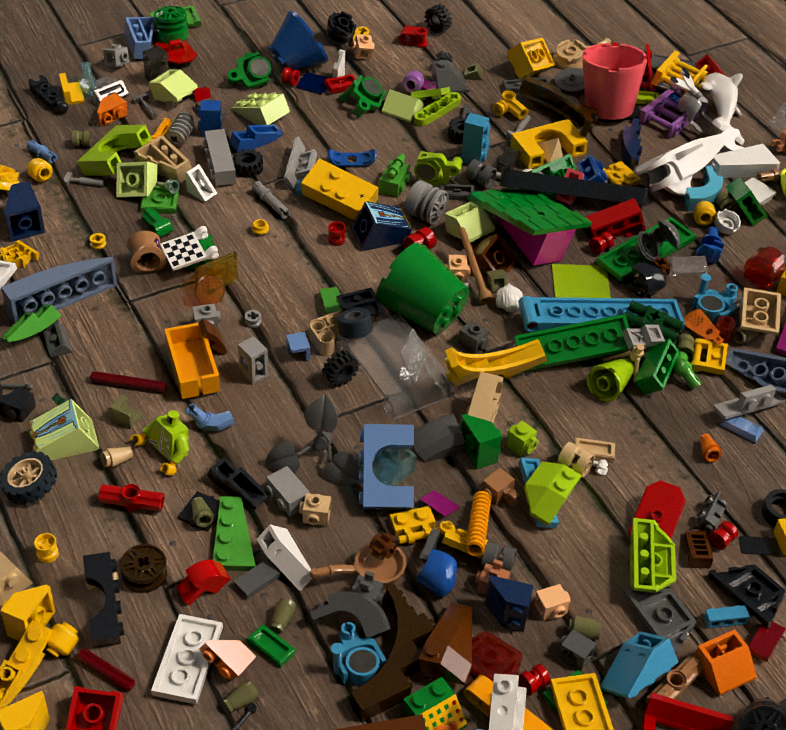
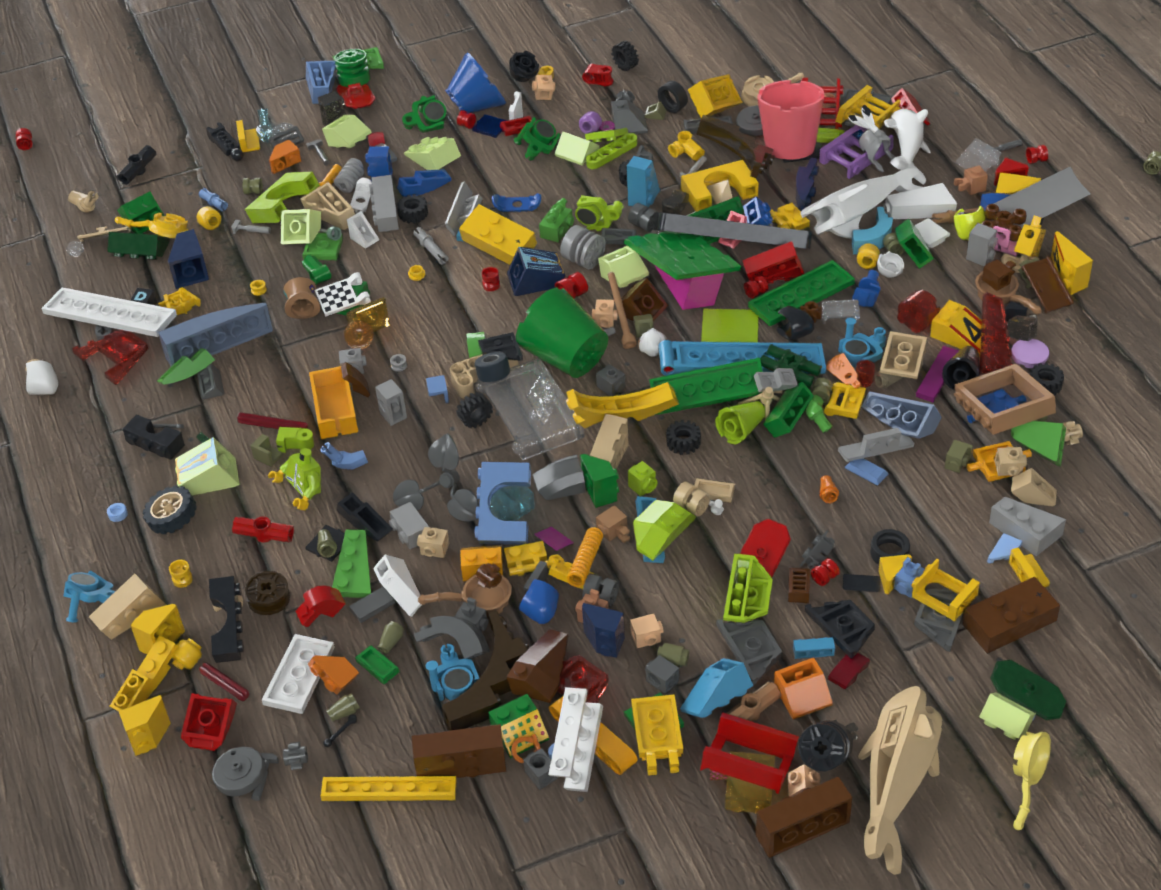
camera: 10 degrees right, 0 degrees up
(114, 456) = (253, 491): tan cone -> none
(116, 55) = (294, 101): light grey brick -> none
(154, 399) = (294, 439): none -> lime leg
(195, 145) = (361, 191): none -> white piece
(364, 526) = (474, 557): none -> light orange slope
(497, 53) = (678, 92): none -> black tyre
(534, 679) = (617, 699): red wheel -> none
(552, 402) = (683, 429): none -> black tyre
(648, 244) = (800, 288): dark grey animal -> none

